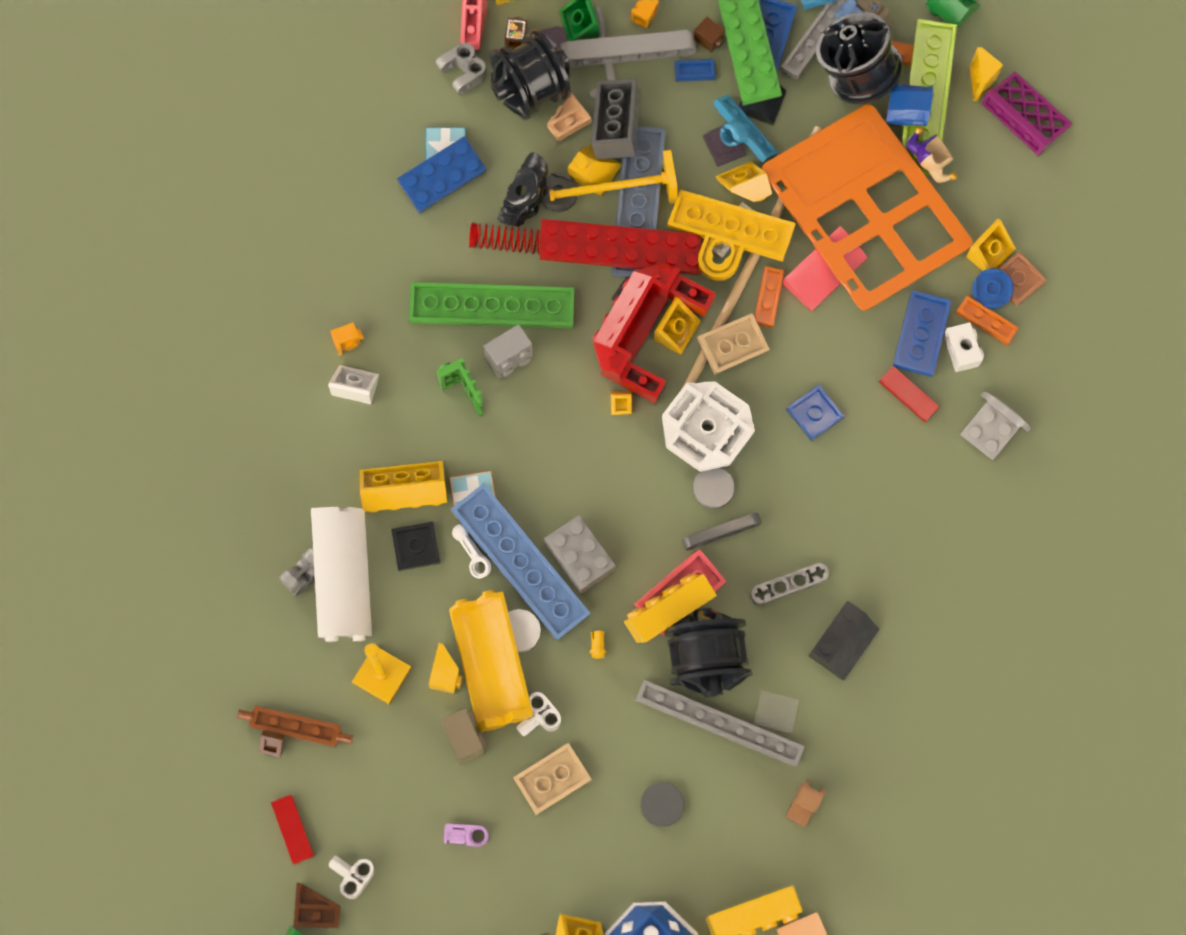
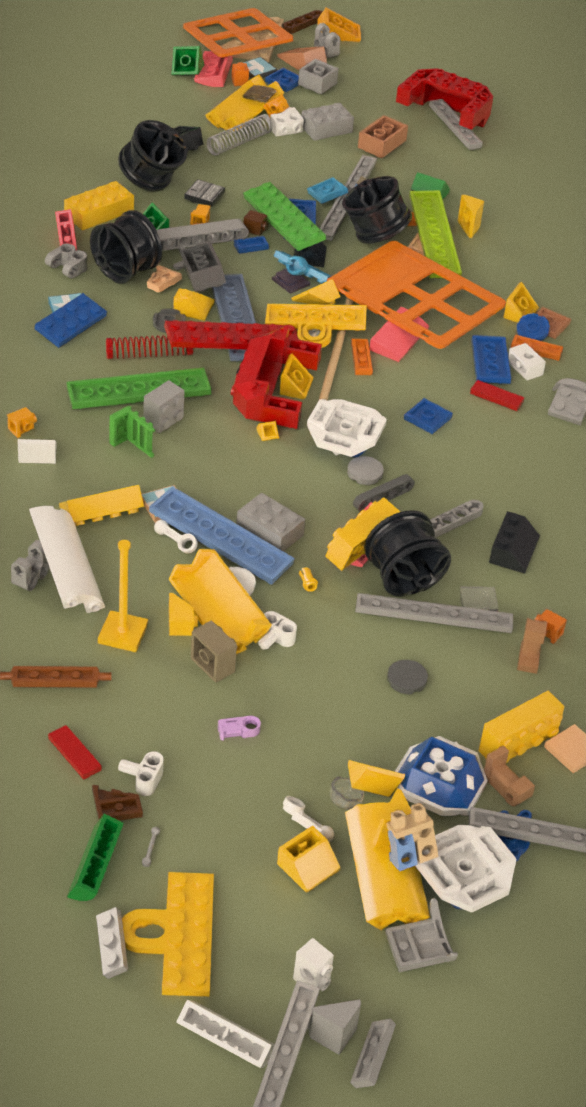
camera: 15 degrees left, 30 degrees down
(271, 743) = (36, 691): plate -> none
(415, 546) = (132, 534): black tile -> none
(533, 176) = (147, 324): black piece -> none
(552, 779) = (303, 673): tan plate -> none
(667, 177) = (256, 294): yellow tile -> none
(733, 343) = (346, 381): tan plate -> none
(839, 770) = (555, 624): none -> orange brick
(909, 105) = (425, 234): blue slope -> none
(931, 155) = (453, 259): tan piece -> none
(1017, 121) = (510, 237): magenta fence -> none

